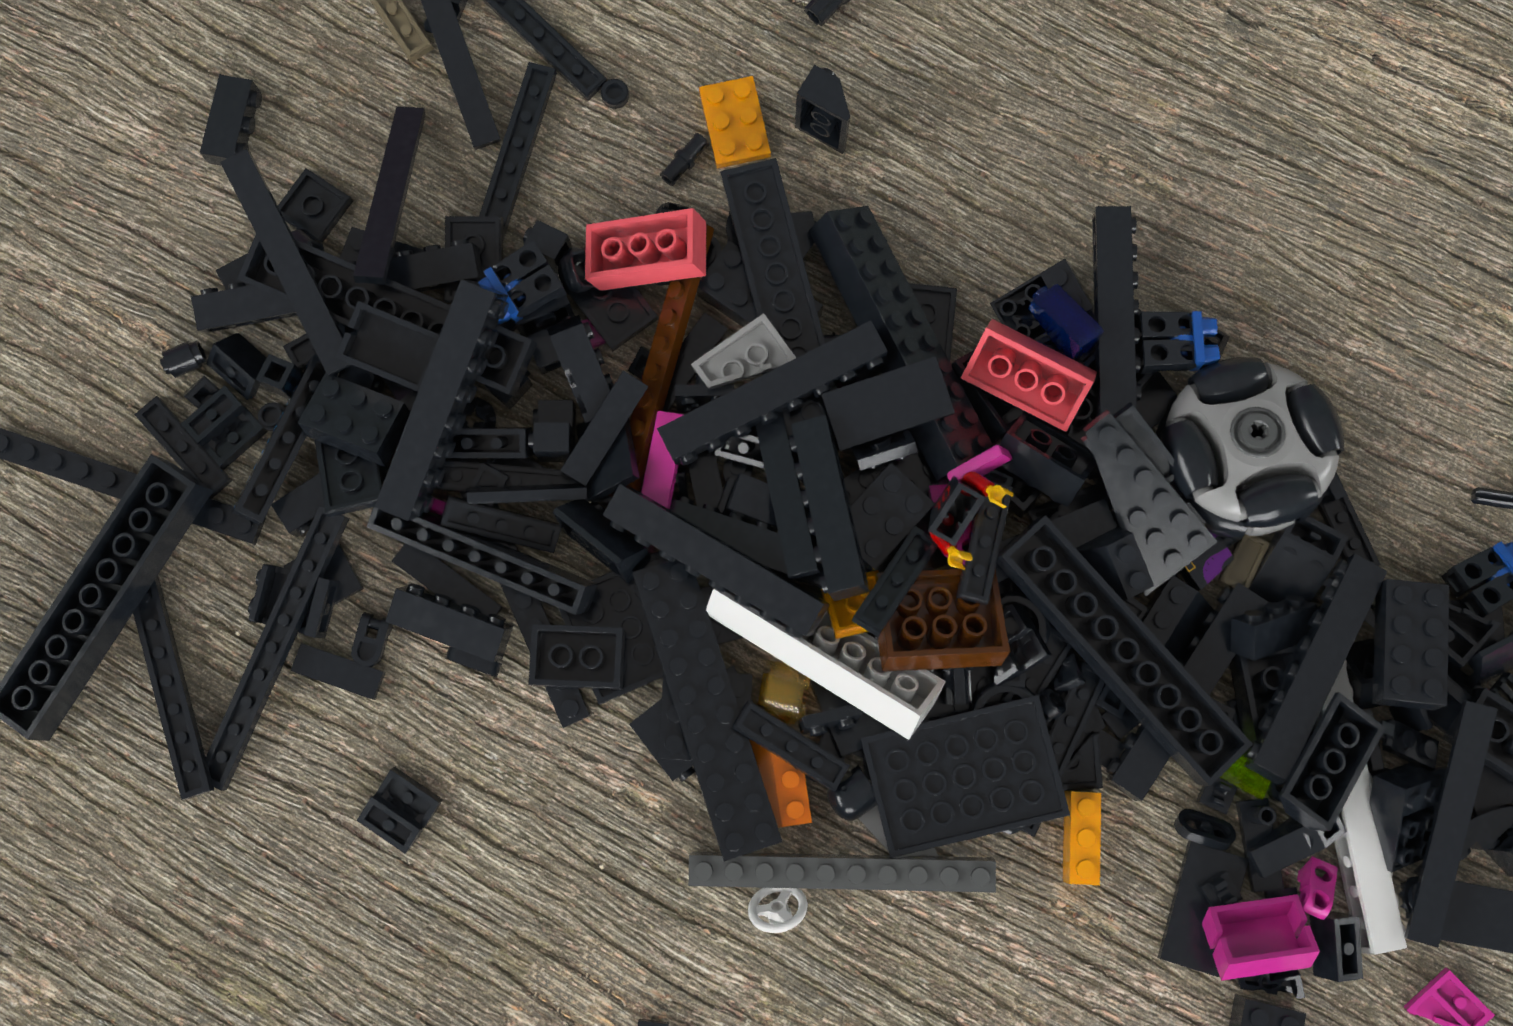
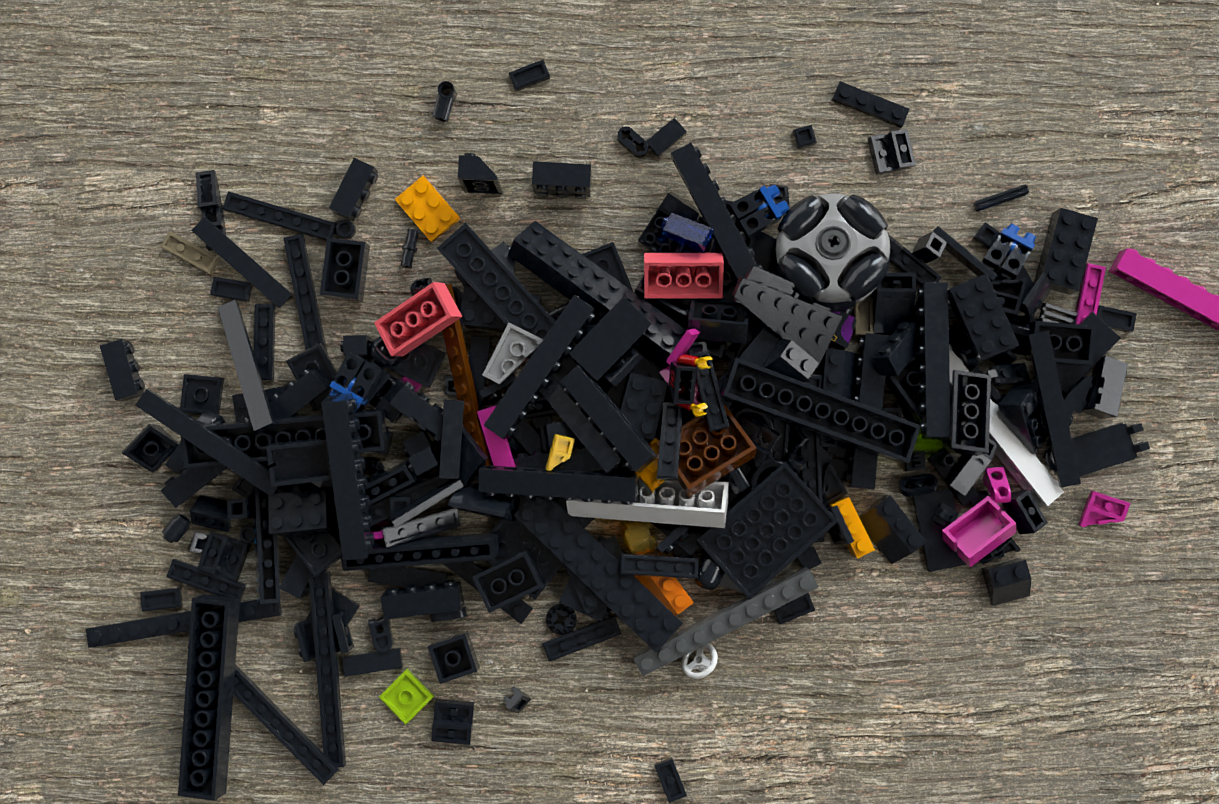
camera: 25 degrees left, 5 degrees up
(112, 440) = (161, 599): none -> black tile
(210, 237) = (151, 447): none -> black slope
(357, 742) = (406, 696): none -> lime tile
(426, 93) = (231, 289): none -> black tile
(432, 179) = (264, 339): none -> black tile
(448, 722) = (453, 657): none -> black brick
(500, 829) = (517, 701): none -> black tile
(585, 142) = (344, 269): none -> black brick
(629, 760) = (563, 610): none -> black gear
(633, 791) = (581, 638): none -> black tile
(653, 48) = (354, 190): none -> black brick
(740, 518) = (560, 451): none -> yellow tile
(931, 171) = (561, 179): none -> black brick
(944, 907) = (794, 609): none -> black tile
(959, 21) = (529, 75): none -> black tile
(1001, 848) = (809, 558): none -> black tile
(1045, 176) = (629, 145): none -> black beam
(1063, 832) = (839, 532): none -> black tile
(1098, 190) = (666, 137): none -> black tile
(1136, 871) = (891, 529): none -> black slope
(1285, 284) = (804, 136): none -> black tile
(1383, 514) = (929, 247): none -> black brick
(1394, 363) = (891, 151): none -> black slope
(1397, 287) = (870, 104): none -> black plate
(1423, 543) = (964, 255): none -> black tile
(1470, 541) = (986, 235): none -> black tile

